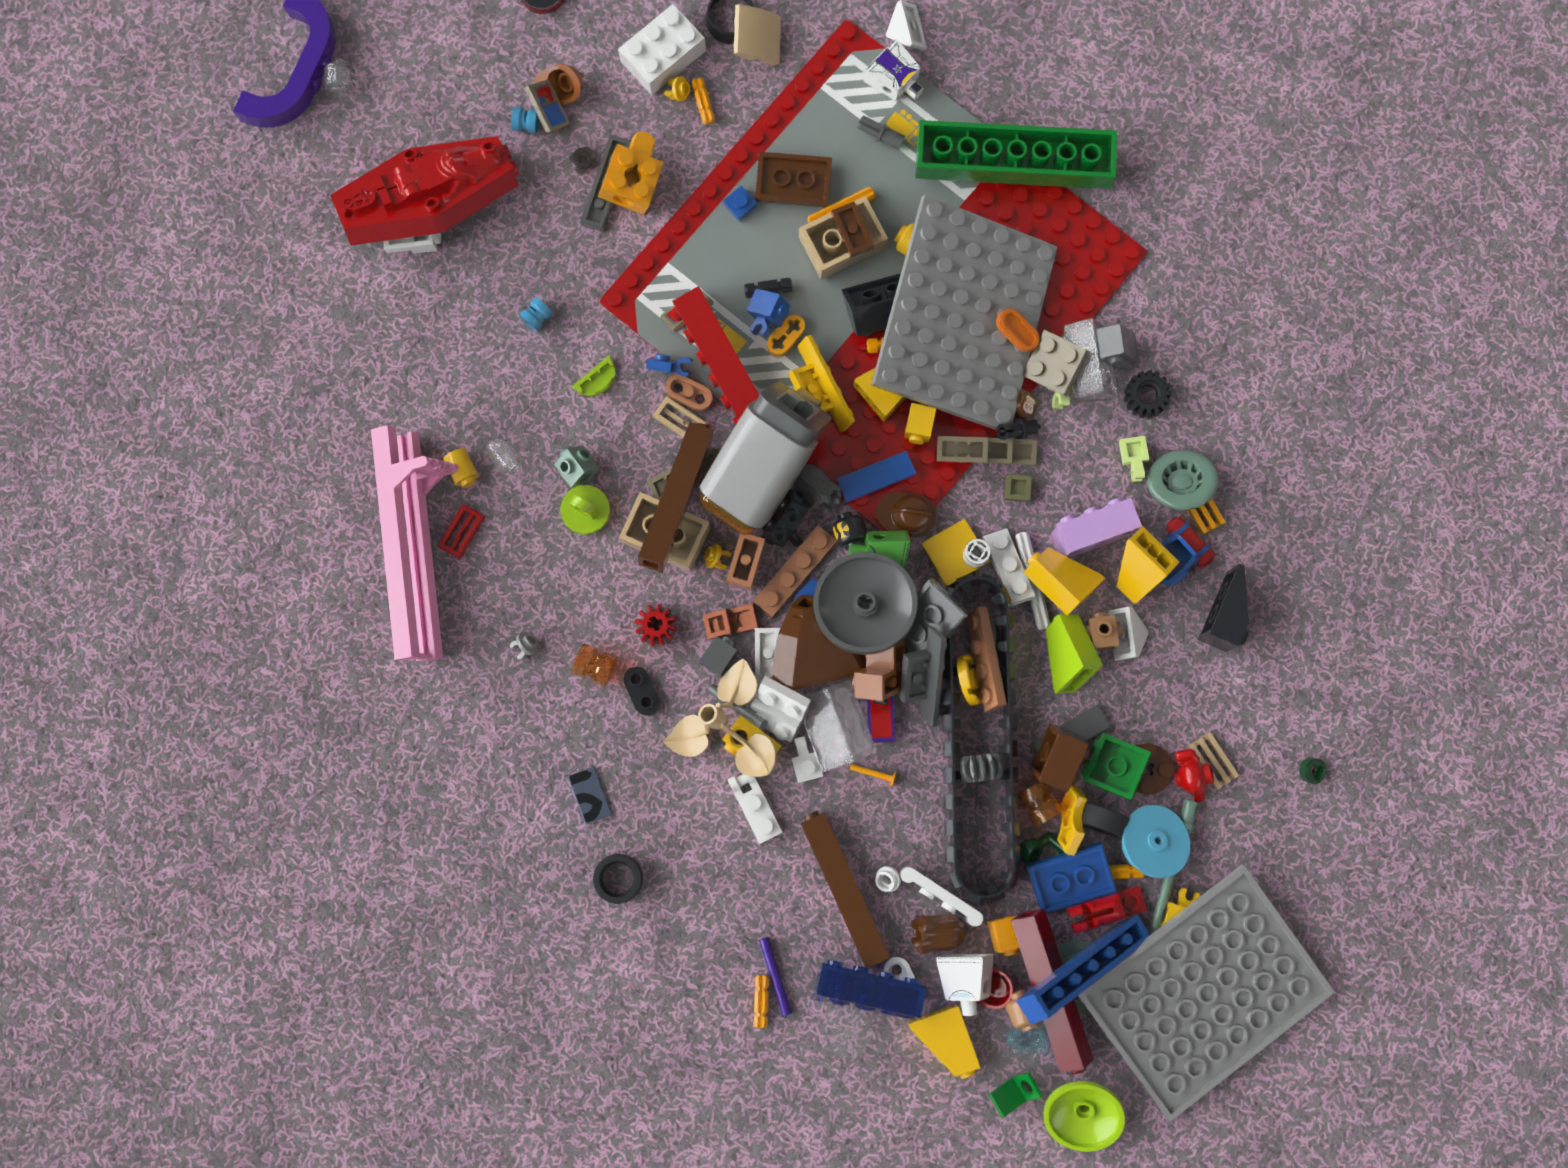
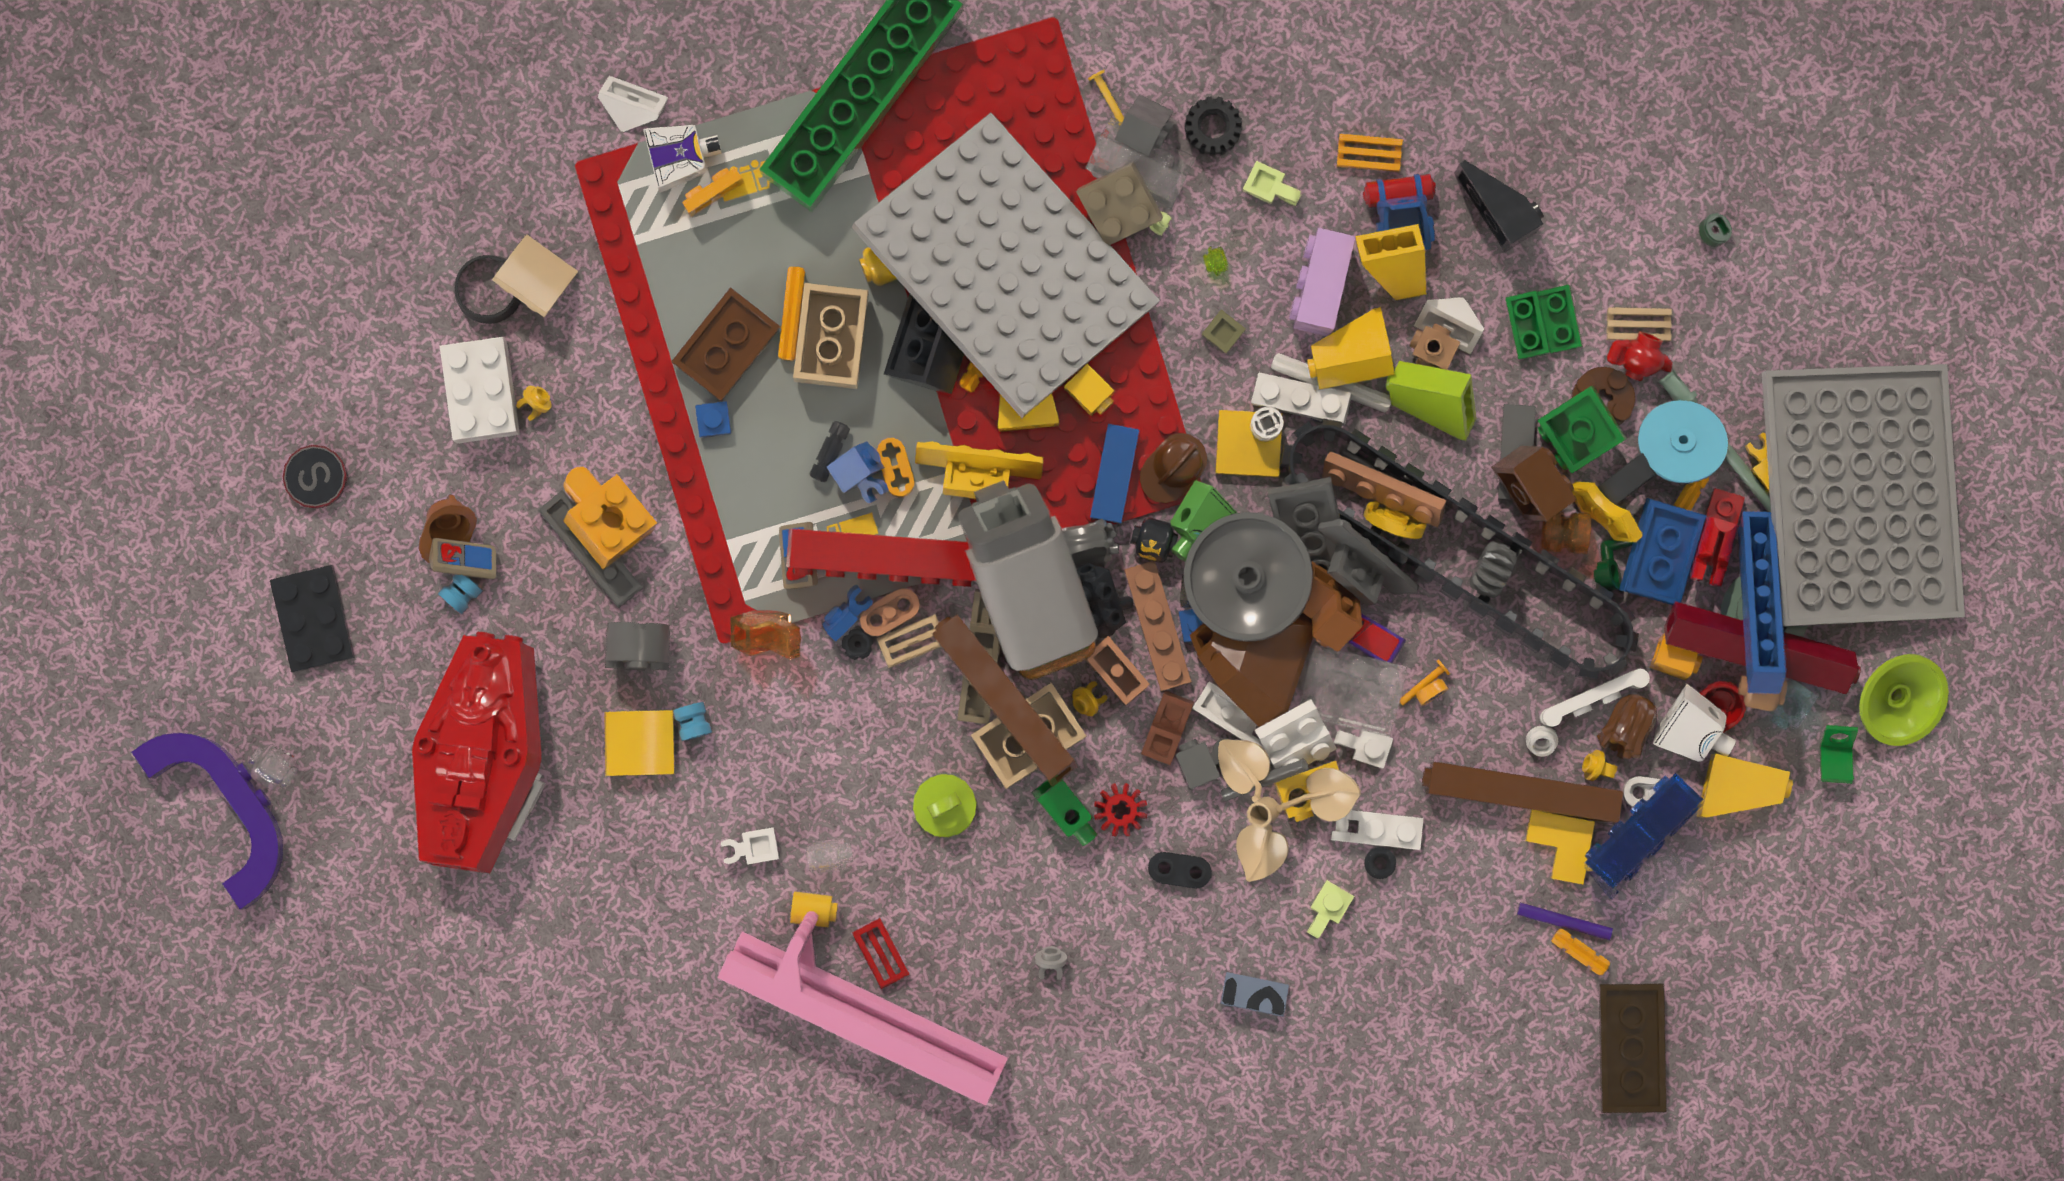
camera: 60 degrees left, 5 degrees up
(451, 44) = (312, 618): none -> black plate
(479, 405) = (756, 846): none -> white plate
(500, 290) = (639, 743): none -> yellow slope
(560, 246) = (637, 646): none -> dark grey brick
(576, 466) = (893, 784): sand green brick -> none
(578, 155) = (540, 551): clear smoke plate -> none
(594, 665) = (1121, 901): clear orange wheel -> none
(597, 380) = (808, 701): lime tile -> none
(599, 884) = (1384, 1016): black tyre -> none
(622, 320) = (765, 631): none -> clear orange brick
(638, 579) = (1057, 802): none -> green torso
(650, 382) = (849, 640): none -> black plate
(684, 807) = (1330, 905): none -> yellowish green plate
(703, 101) = (566, 383): light orange axle -> none
(717, 1082) = (1632, 1048): none -> dark brown plate
(725, 819) = (1390, 863): none -> black plate
(834, 942) = (1569, 836): none -> yellow tile
(852, 229) = (836, 323): reddish brown plate -> none
(871, 781) = (1431, 691): none -> light orange tile
(879, 106) = (722, 183): none -> light orange plate
(881, 132) = (735, 213): dark grey axle -> none
(895, 926) = (1595, 765): none -> yellow plate
(986, 450) = (1163, 338): dark tan slope -> none
(1017, 330) = (1059, 220): orange tile -> none
(1018, 429) = (1162, 290): black axle -> none
(1026, 405) = (1141, 263): reddish brown tile -> none
(1061, 453) = (1216, 260): none -> clear neon green plate
(1127, 300) = (1107, 95): none -> yellow pin
(1170, 695) = (1544, 322): none -> green slope
(1182, 487) = (1331, 155): sand green wheel -> none

